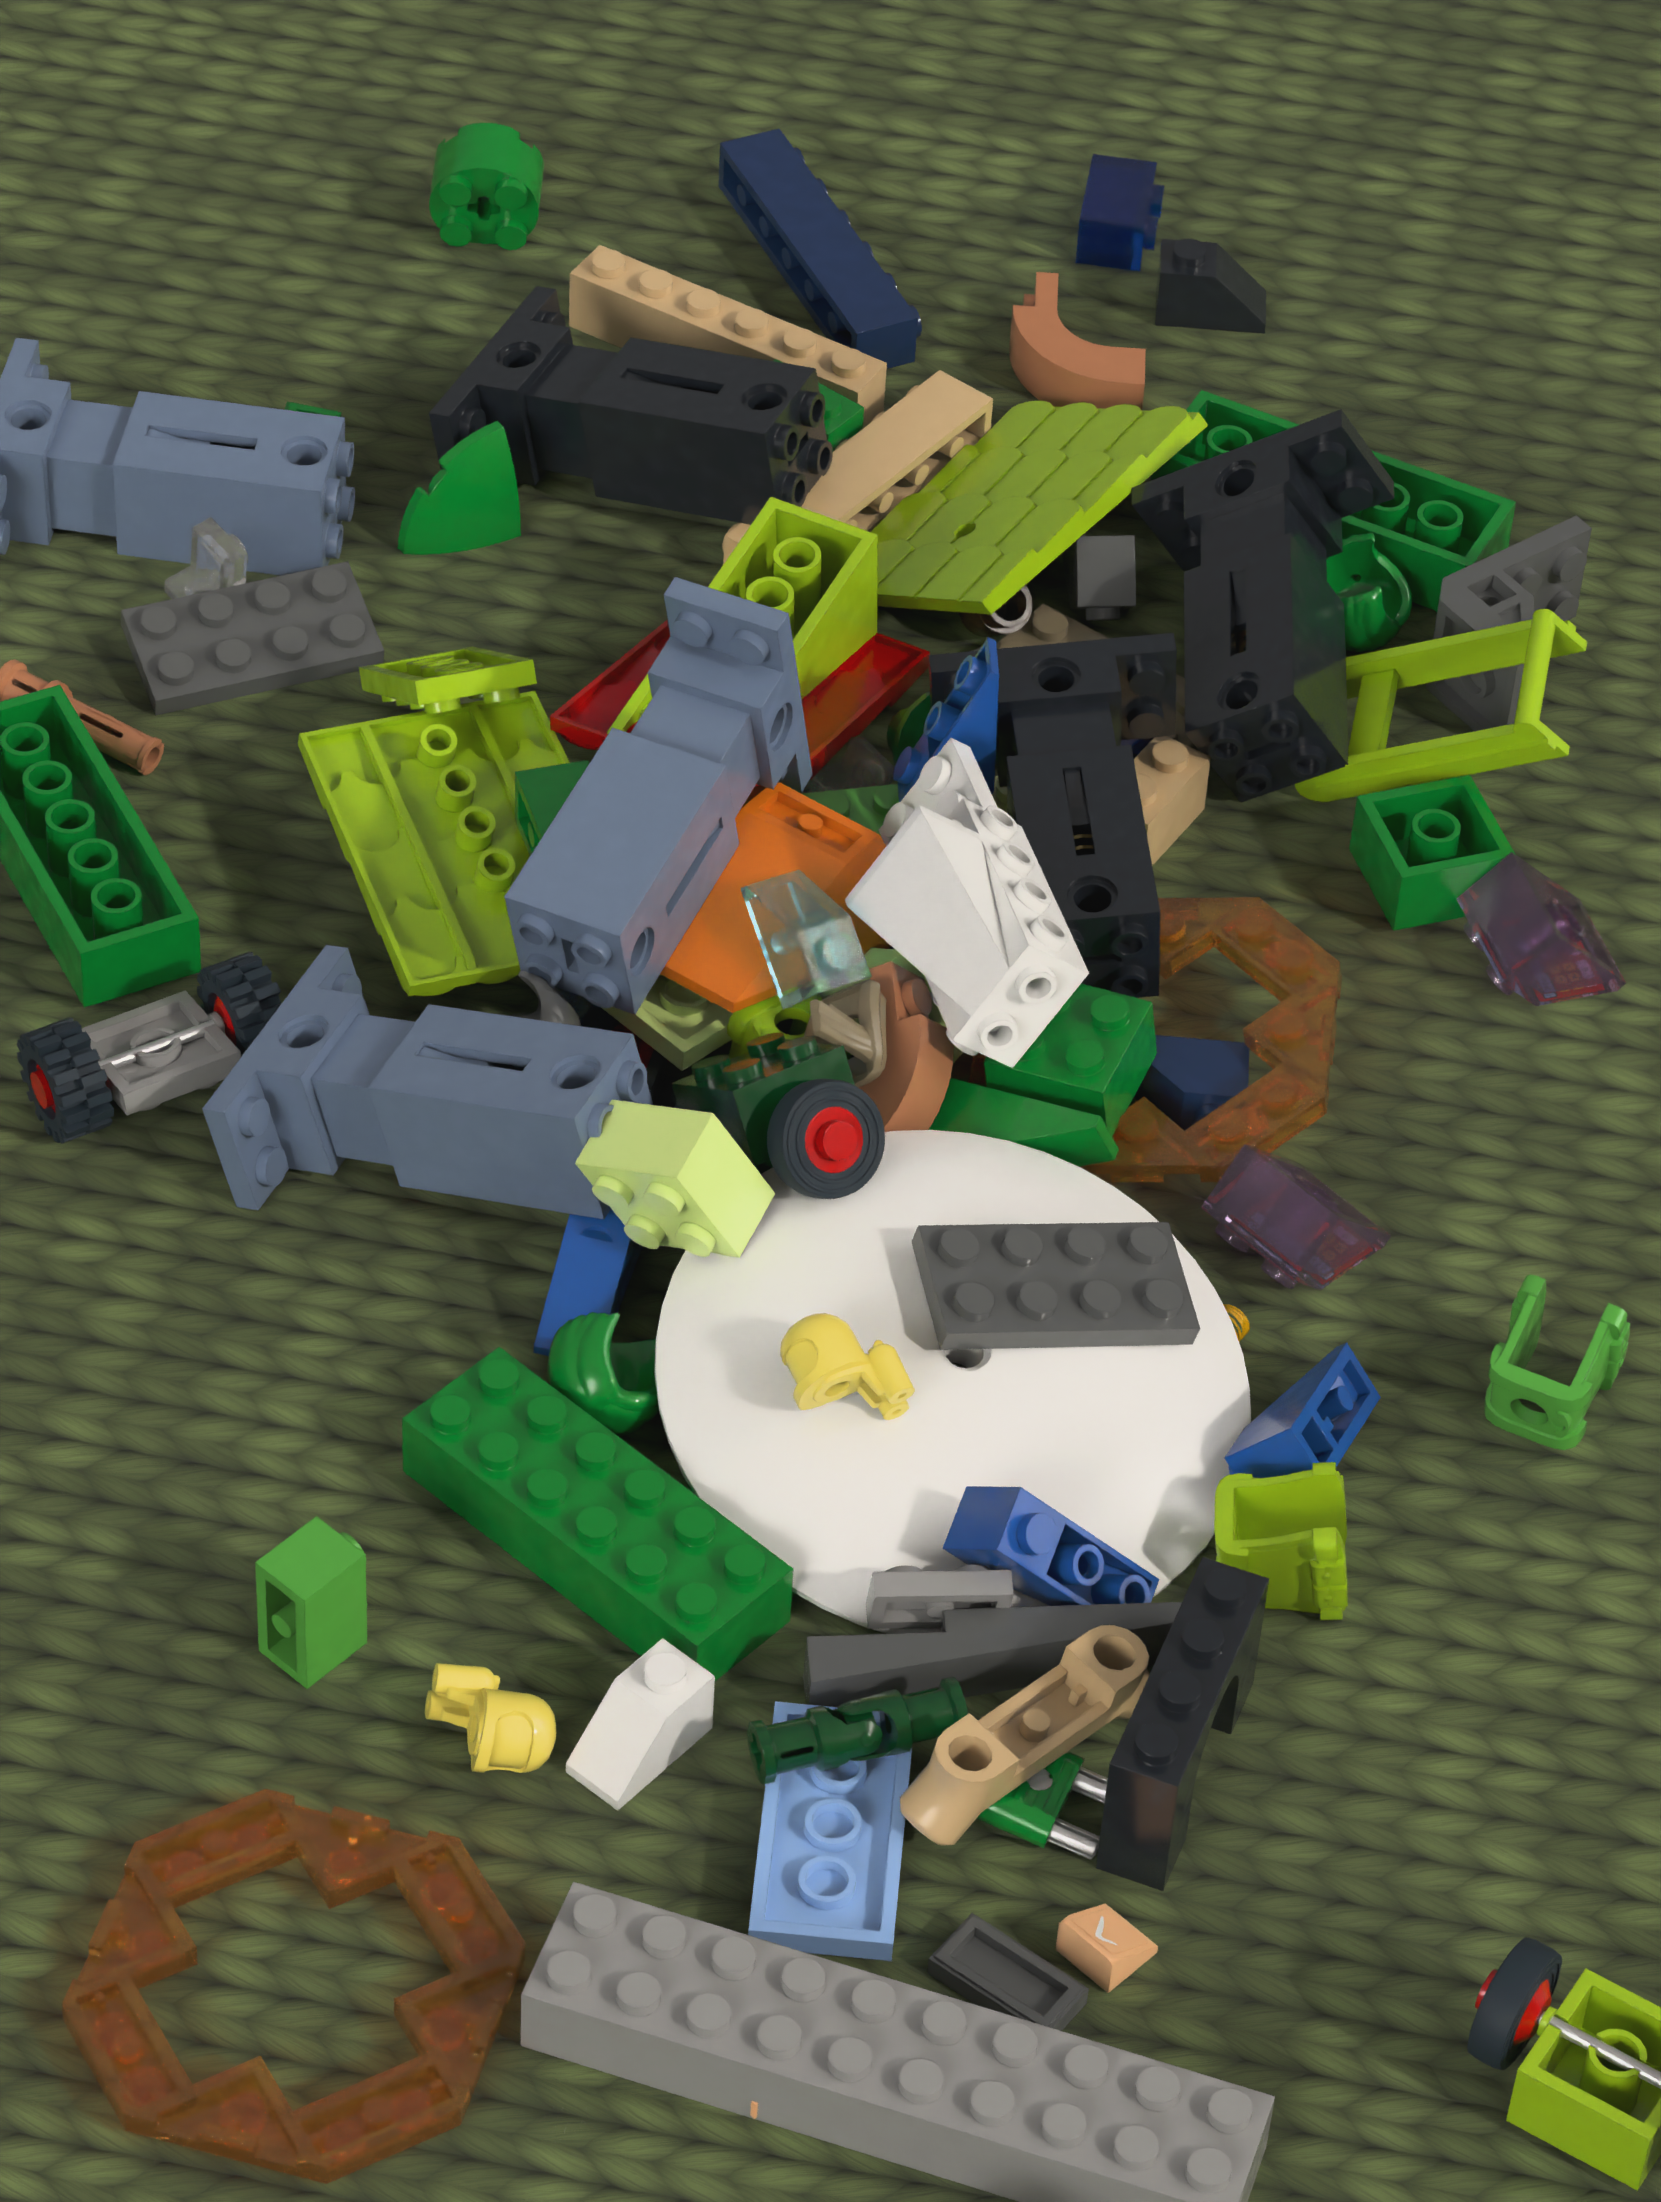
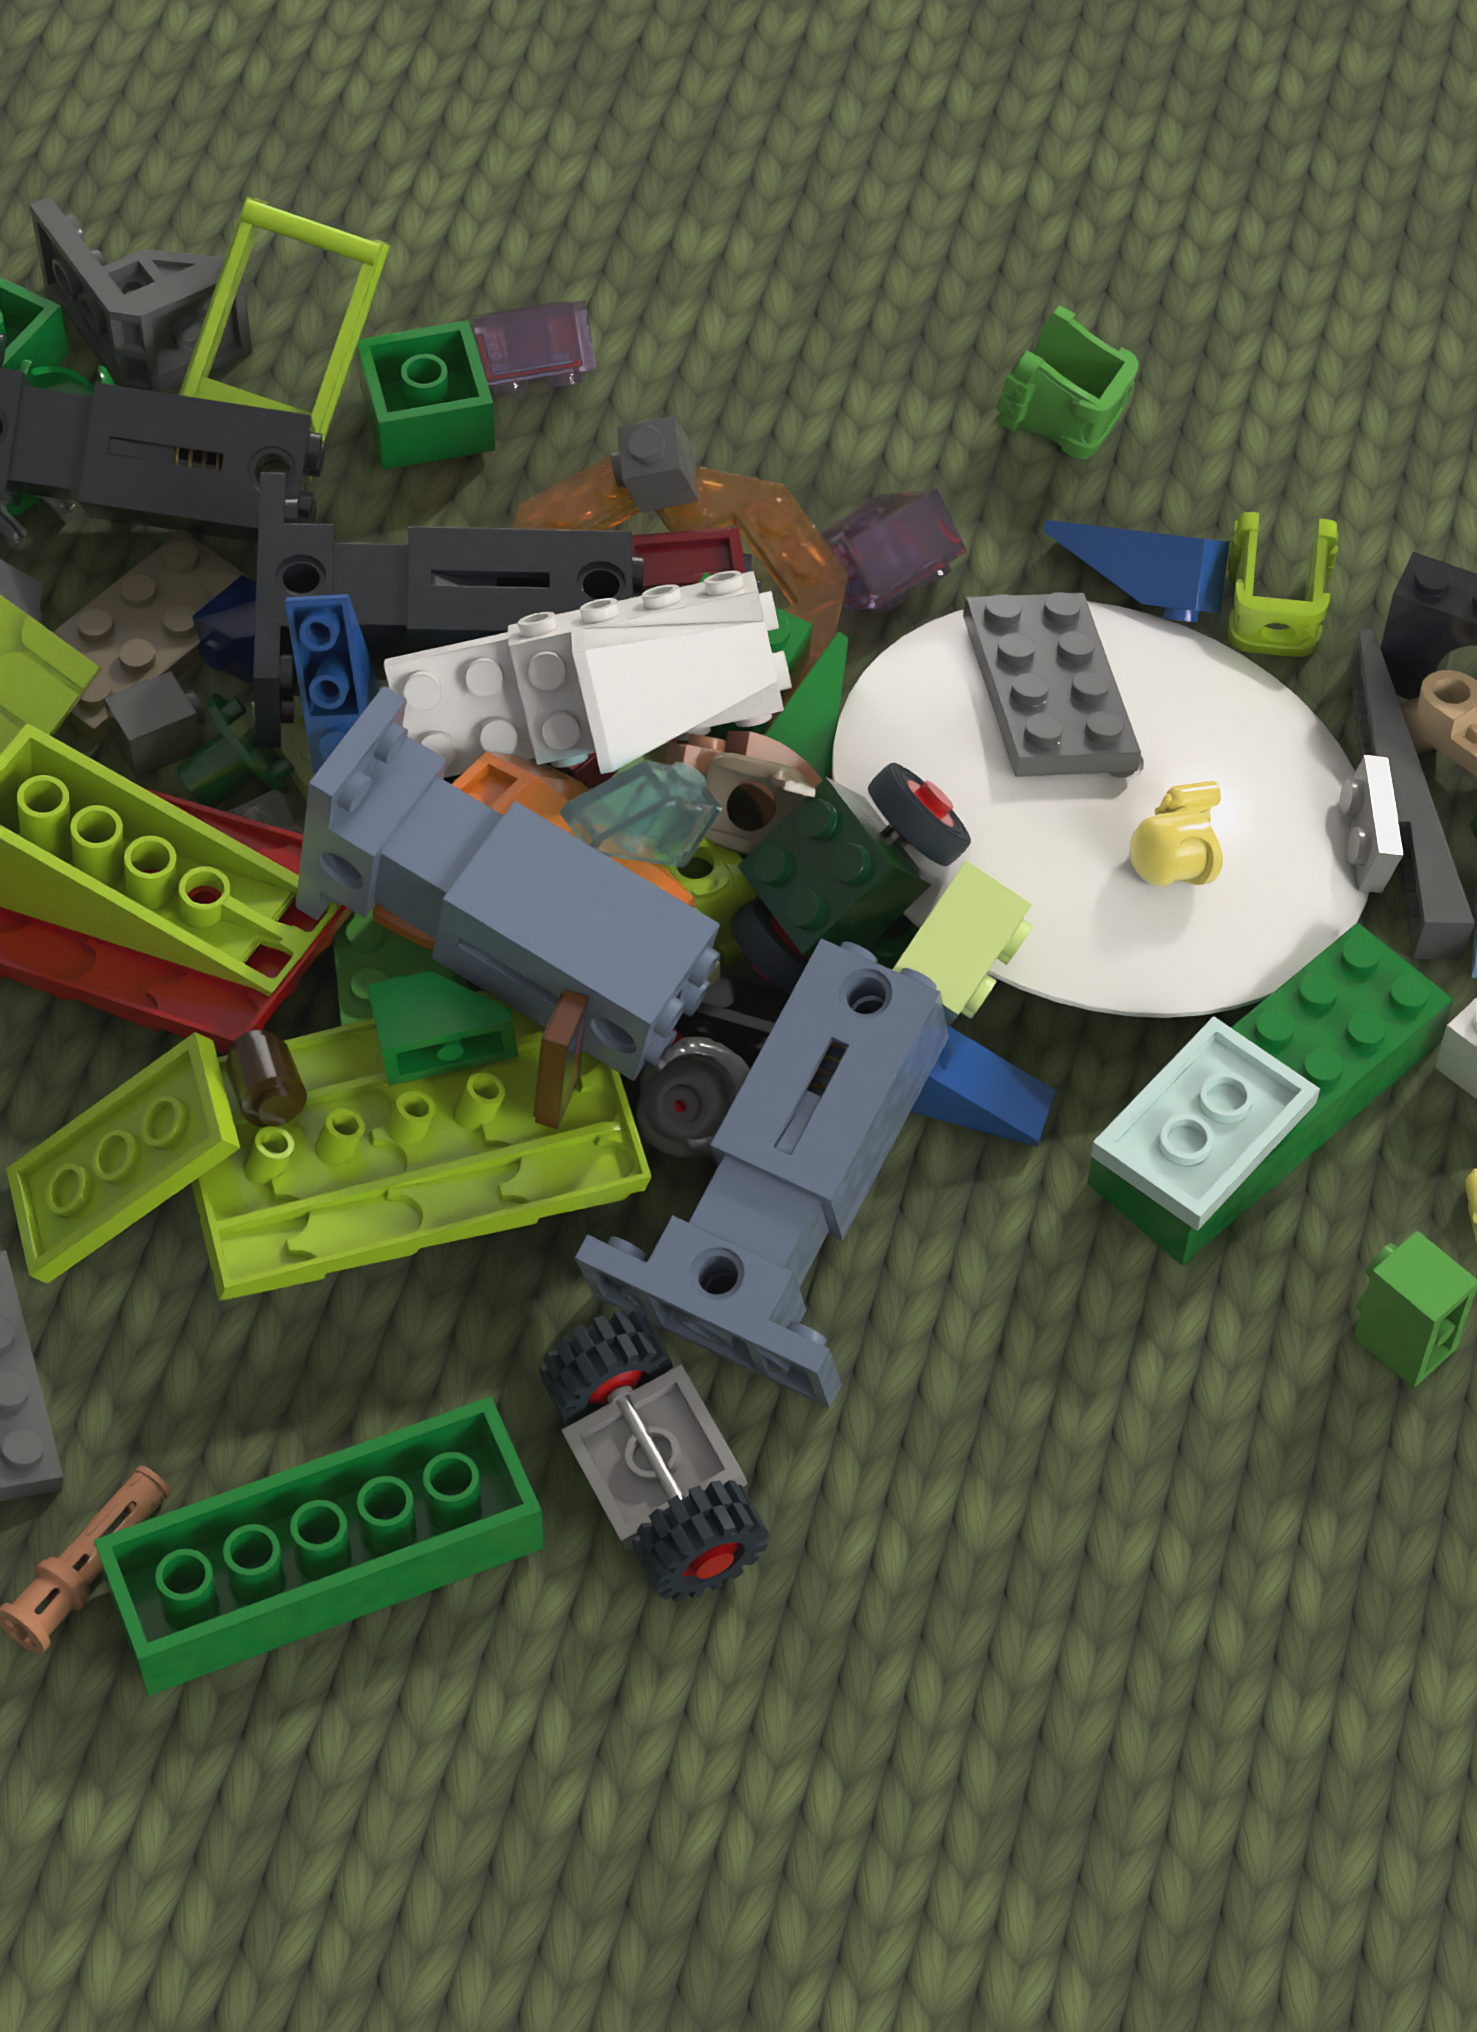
camera: 85 degrees left, 10 degrees up
(495, 866) = (560, 1058): none -> reddish brown tile
(500, 722) = (265, 1079): none -> dark brown brick
(500, 1402) = (1205, 1123): none -> light aqua plate
(604, 1377) = (1102, 1065): green piece -> none
(1044, 1550) = (1329, 741): blue slope -> none
(1207, 1026) = (686, 555): none -> dark red tile
(1296, 964) = (656, 464): none -> dark grey brick

